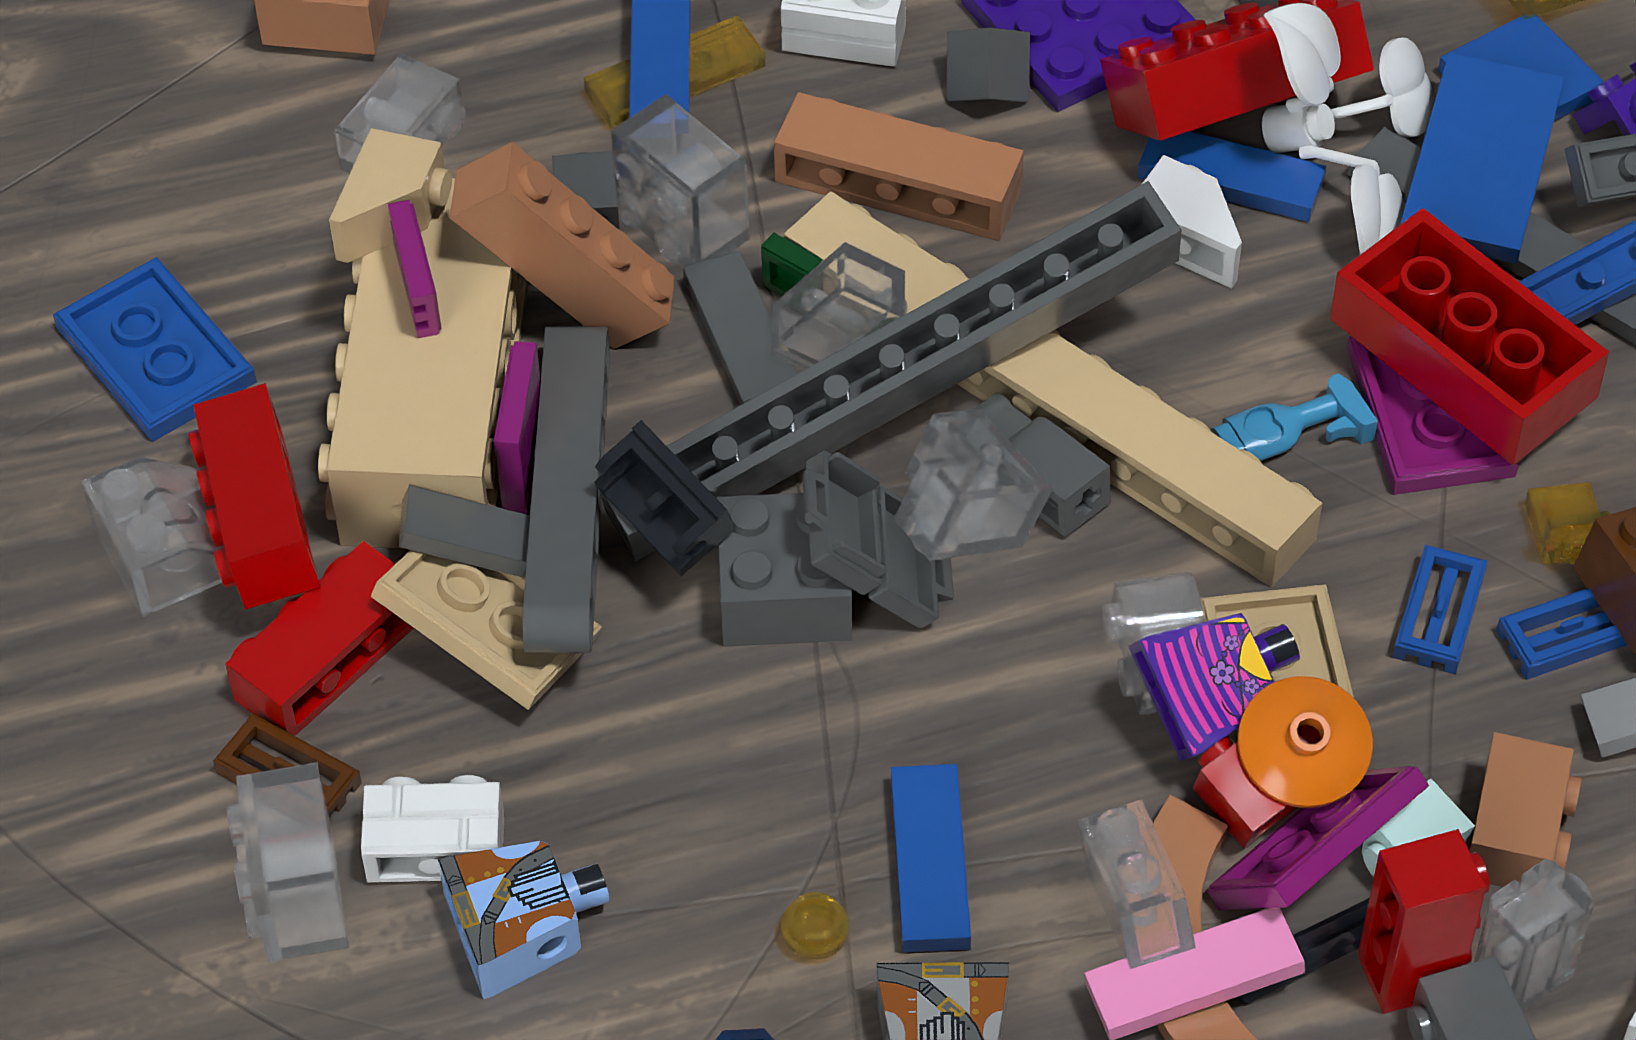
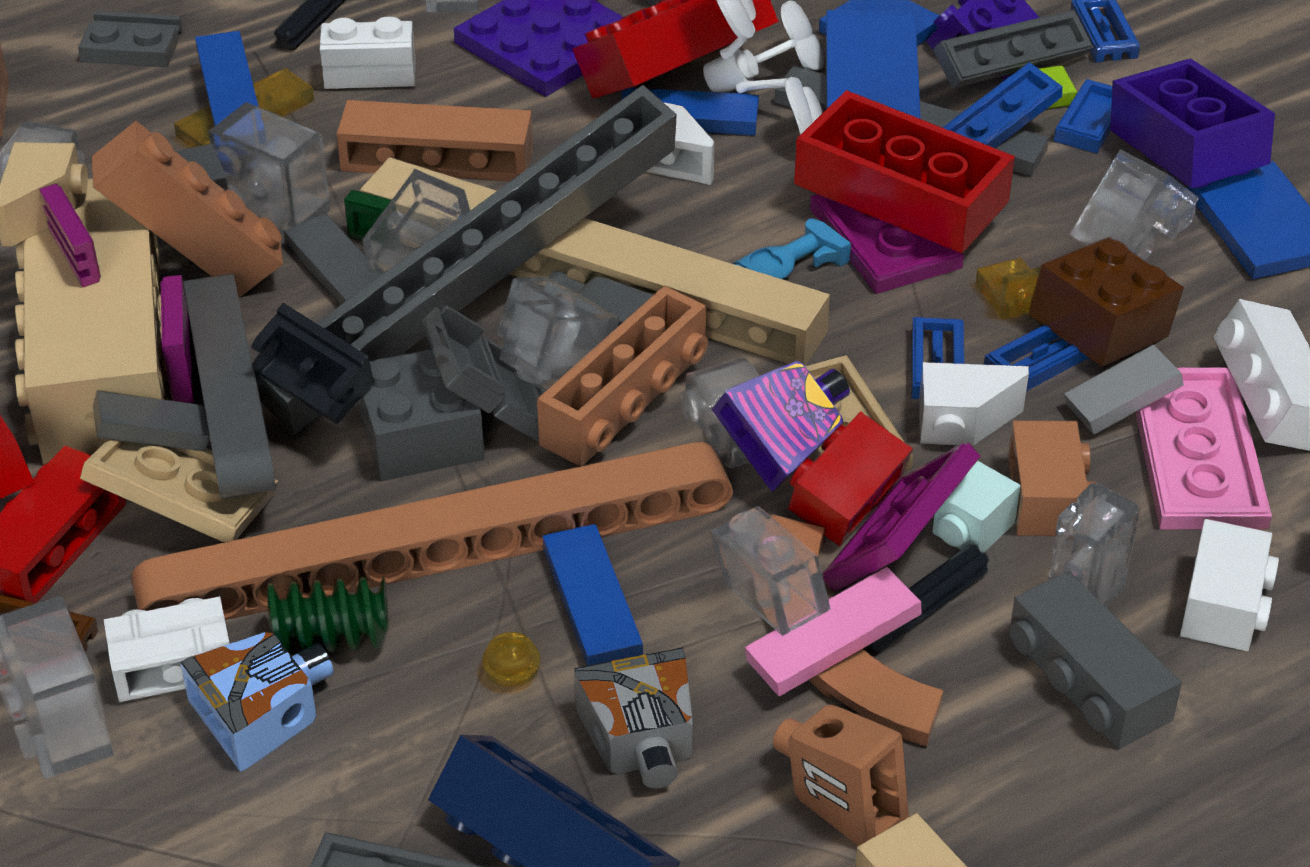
camera: 15 degrees left, 10 degrees down
(618, 829) = (329, 615): none -> dark green piece
(774, 740) = (441, 531): none -> nougat beam
(988, 65) = (486, 67): dark grey panel -> none
(1039, 568) = (622, 376): none -> nougat brick
(1298, 771) = (871, 465): orange dish -> none
(1420, 915) = (1005, 545): red brick -> none
(1455, 684) = (968, 401): none -> white slope

